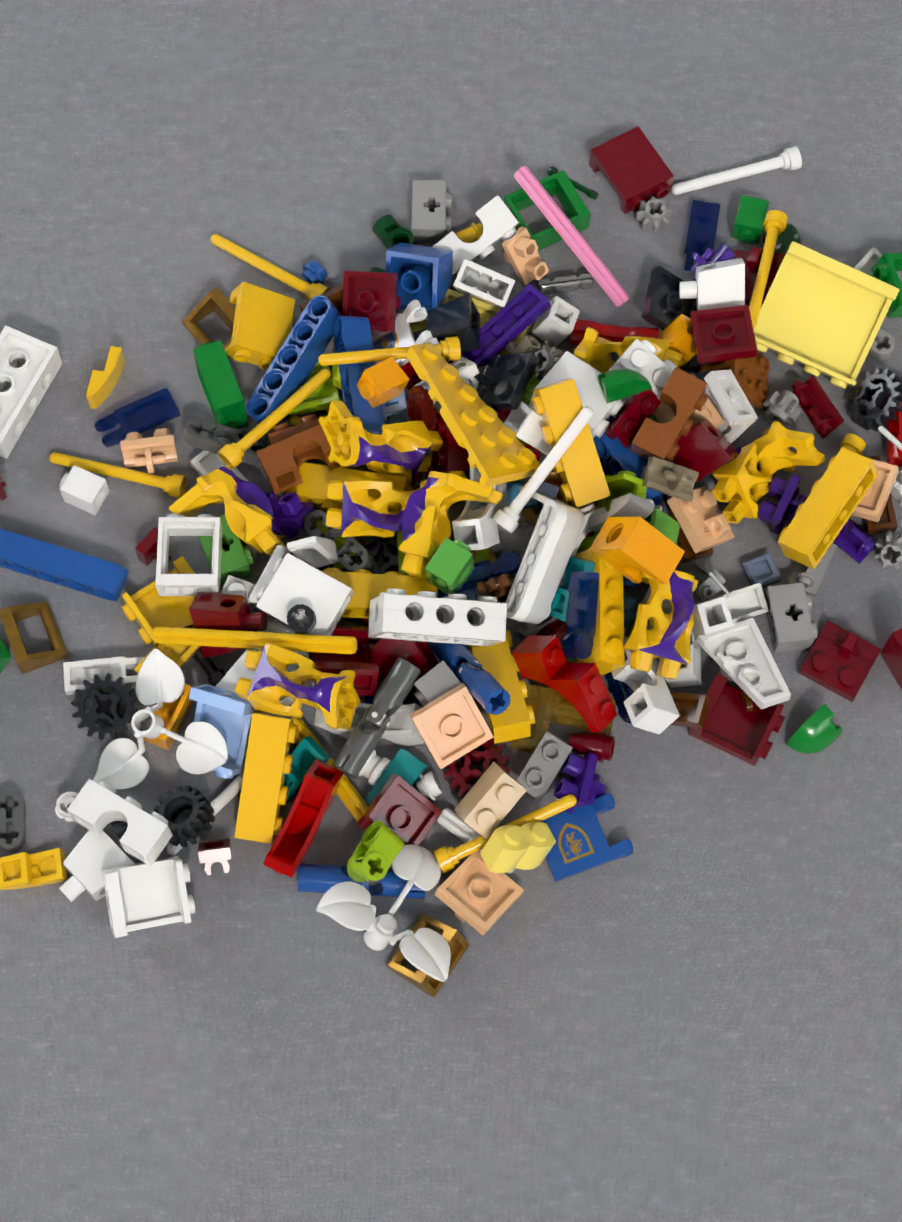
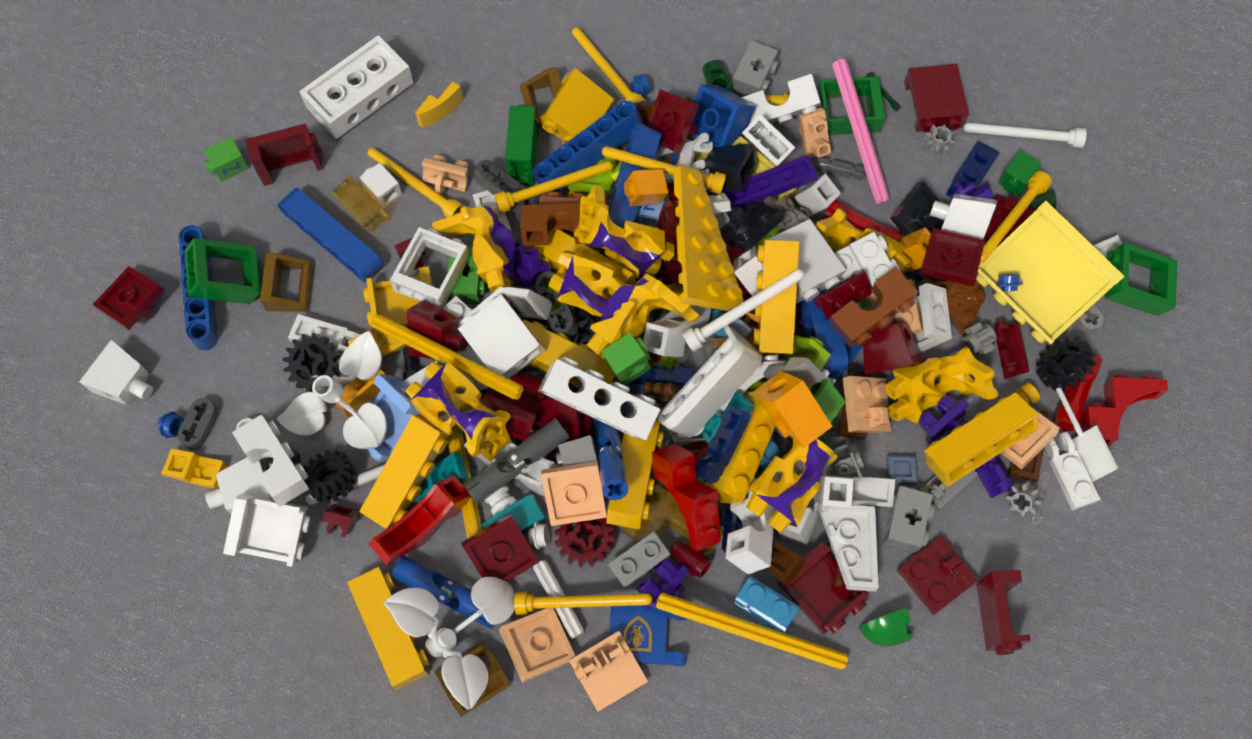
camera: 25 degrees right, 0 degrees up
(72, 517) = (359, 203): none -> clear yellow hinge
(138, 416) = (450, 145): clear blue hinge -> none
(308, 612) = (480, 357): black bush -> none
(319, 941) = (395, 647): none -> yellow brick
(374, 853) = (466, 573): lime piece -> none
(490, 800) = (579, 570): tan brick -> none
(517, 847) = (584, 619): light yellow brick -> none
(561, 888) = (608, 671): none -> light nougat hinge
(622, 383) = (843, 263): green brick -> none
(669, 478) = (851, 359): dark tan hips -> none
(685, 789) = (752, 631): none -> yellow axle
(688, 759) = (765, 605): none -> dark azure brick
(788, 338) = (1009, 282): none -> blue plate

